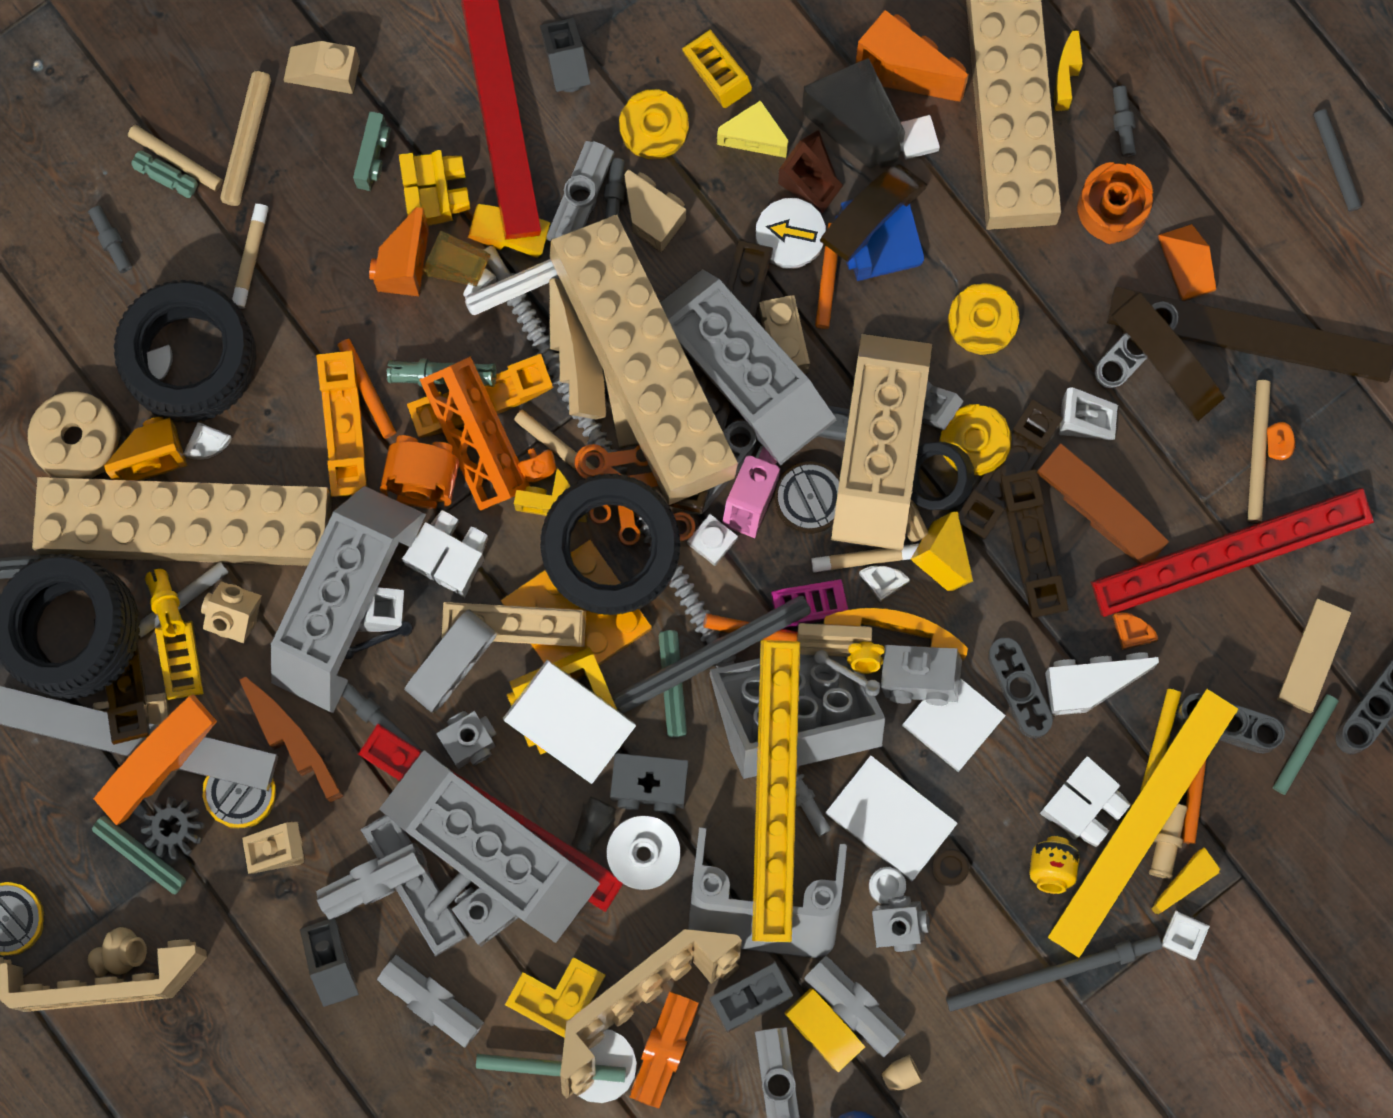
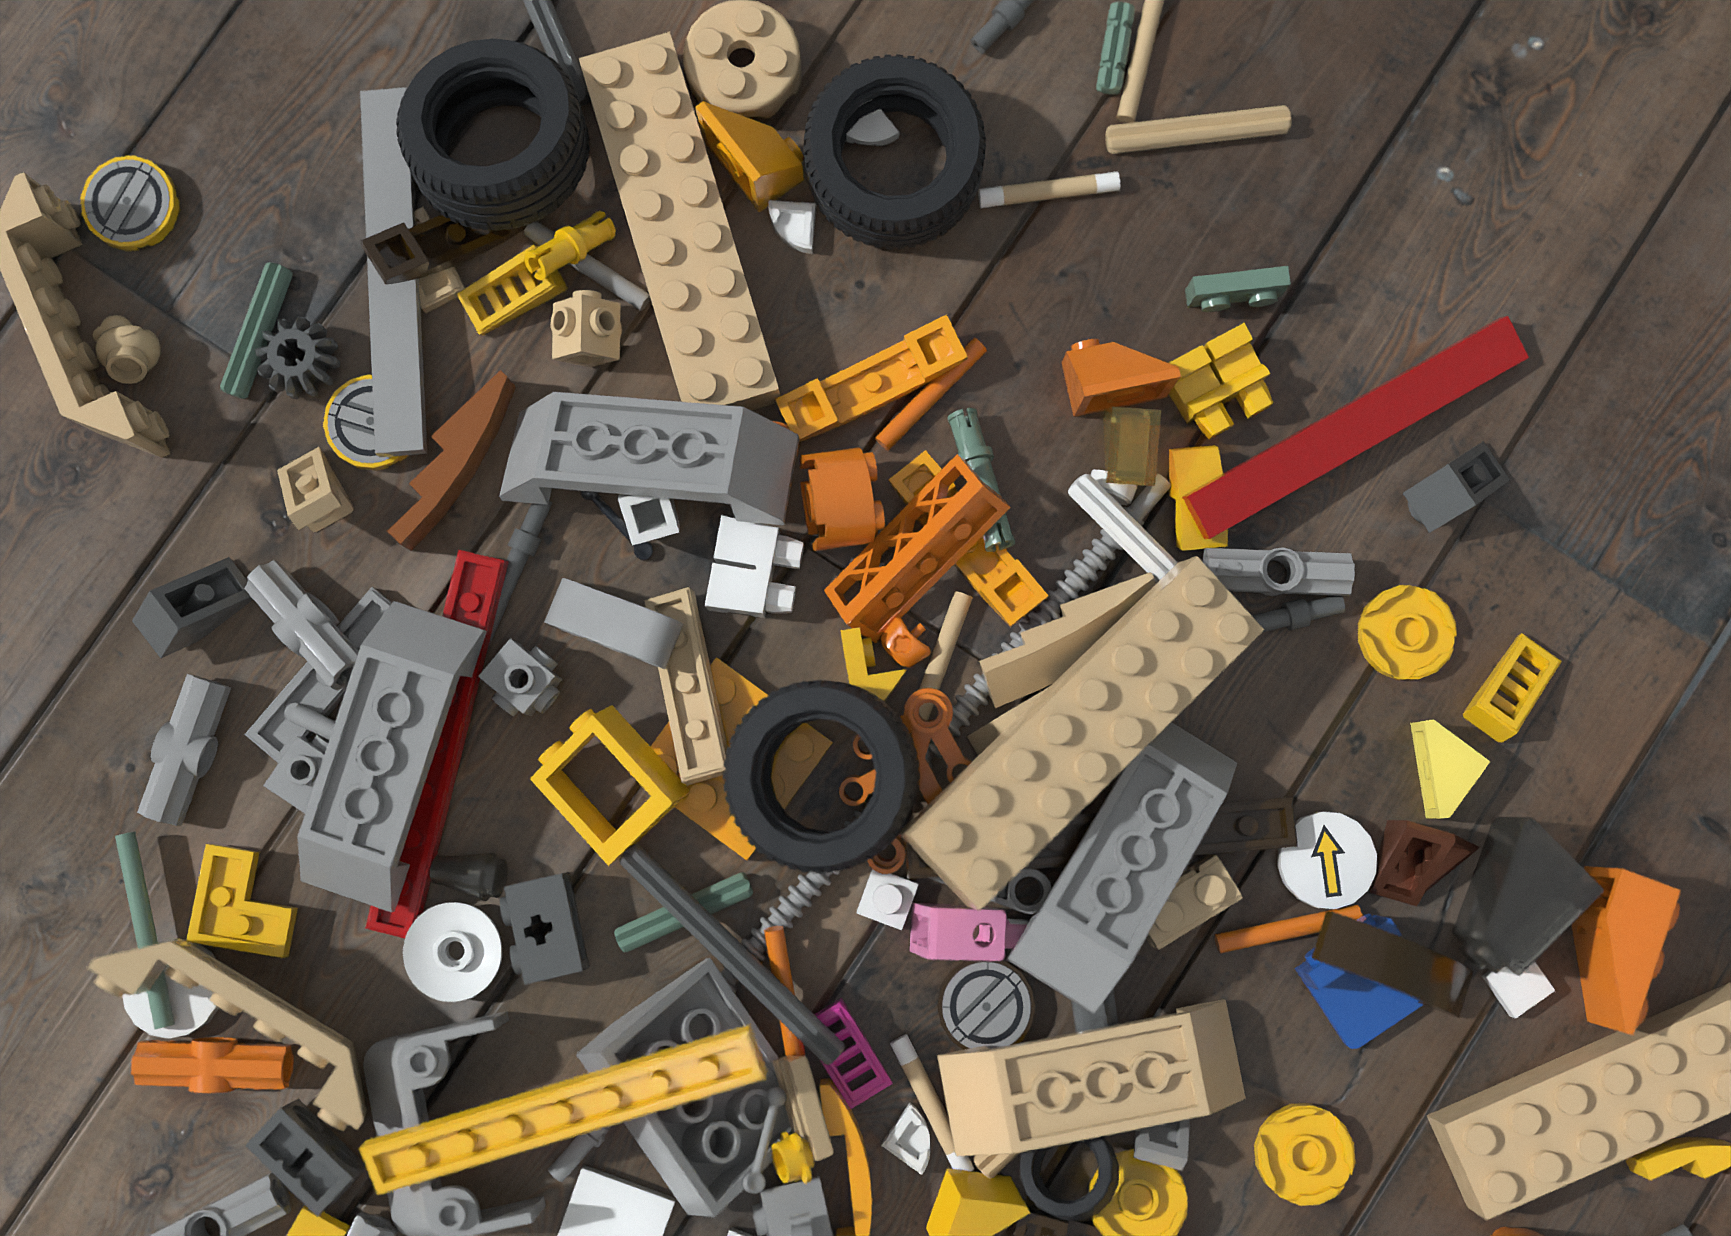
camera: 70 degrees right, 5 degrees up
(155, 759) = (366, 304): orange slope -> none
(323, 66) = (1326, 190): tan slope -> none
(569, 721) = (577, 802): white tile -> none
(652, 213) = (1288, 672): tan slope -> none

